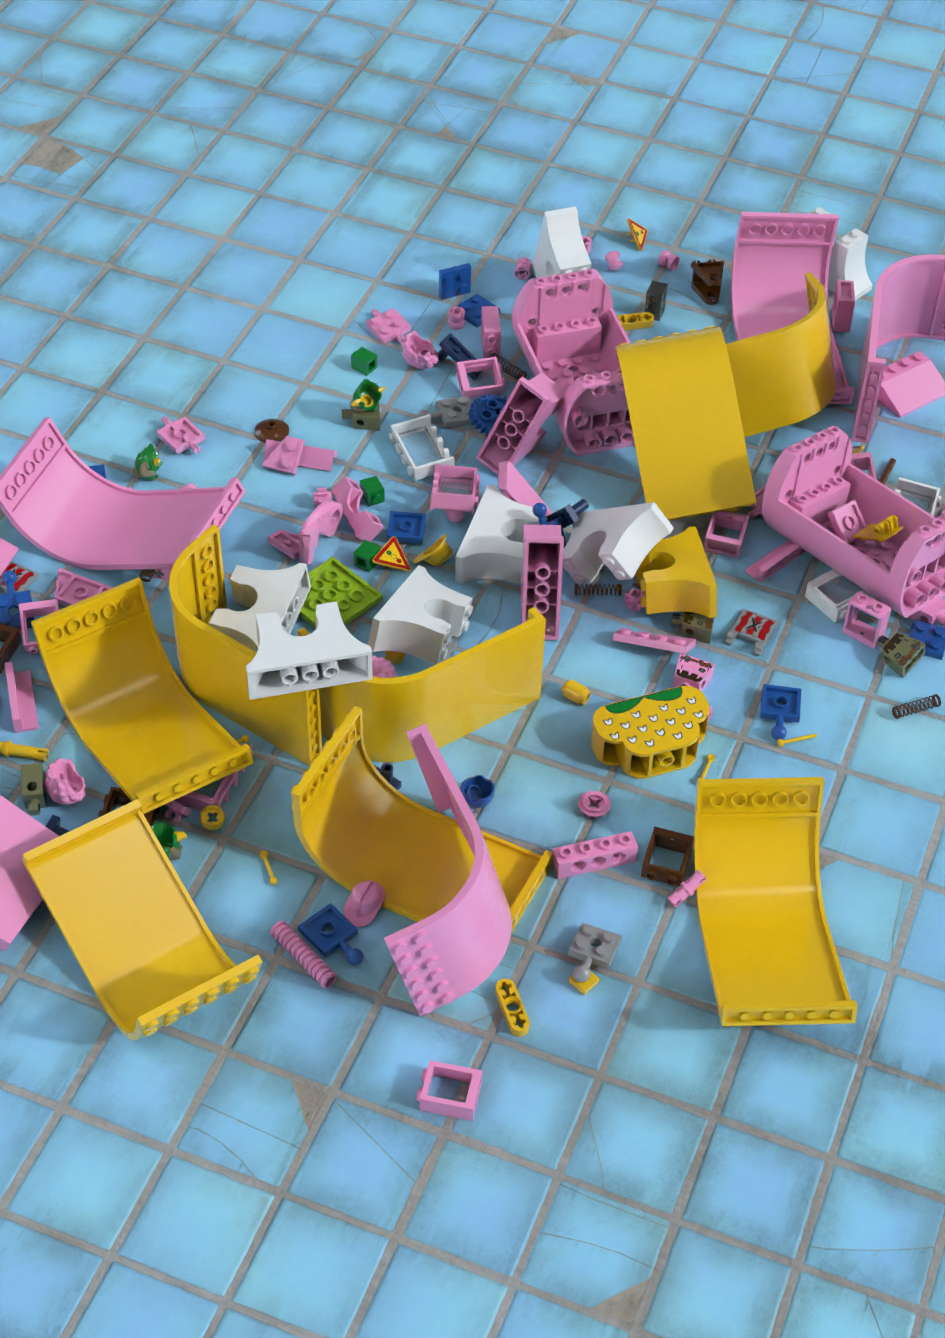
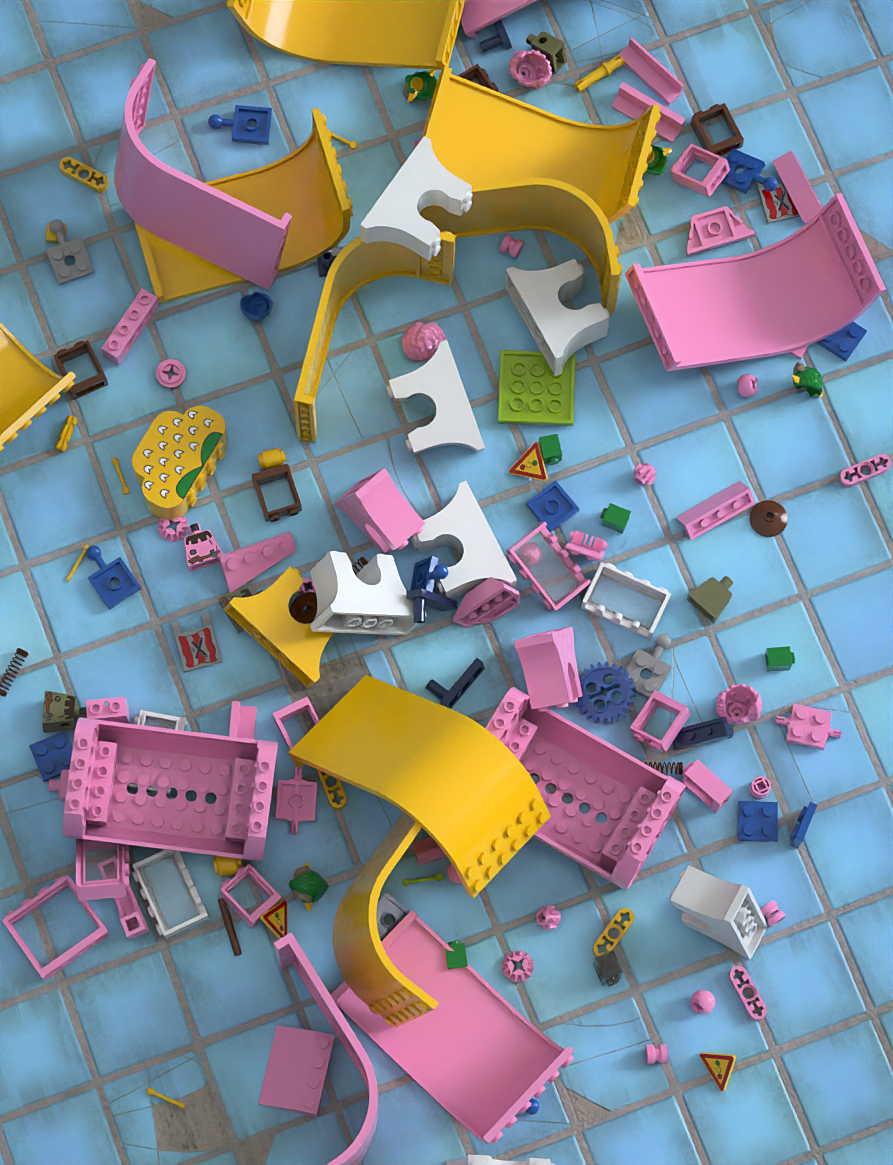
camera: 135 degrees right, 25 degrees up
(167, 404) = (868, 463): none -> bright pink beam
(180, 435) = (826, 441): bright pink plate -> none
(204, 817) = (410, 132): yellow piece -> none
(286, 455) = (718, 490): bright pink wing -> none
(286, 543) = (619, 411): bright pink wing -> none
(304, 954) = (249, 95): bright pink piece -> none
(322, 520) = (607, 438): bright pink animal -> none
(364, 523) = (584, 475): bright pink arch -> none
(364, 903) = (248, 163): bright pink piece -> none
(366, 396) = (713, 591): green hair -> none
(415, 484) = (593, 553): none -> bright pink hinge
(437, 553) = (504, 495): yellow piece -> none
(445, 1106) = (74, 97): bright pink window -> none
(593, 480) = (450, 697): none -> dark blue piece
(596, 683) = (270, 476): none -> reddish brown window
(687, 888) = (44, 352): bright pink pin -> none
(707, 280) = (590, 1049): reddish brown piece -> none
(843, 306) = (429, 1108): bright pink window -> none
(847, 521) = (200, 804): bright pink tile -> none
(880, 531) = (167, 812): yellow hinge -> none

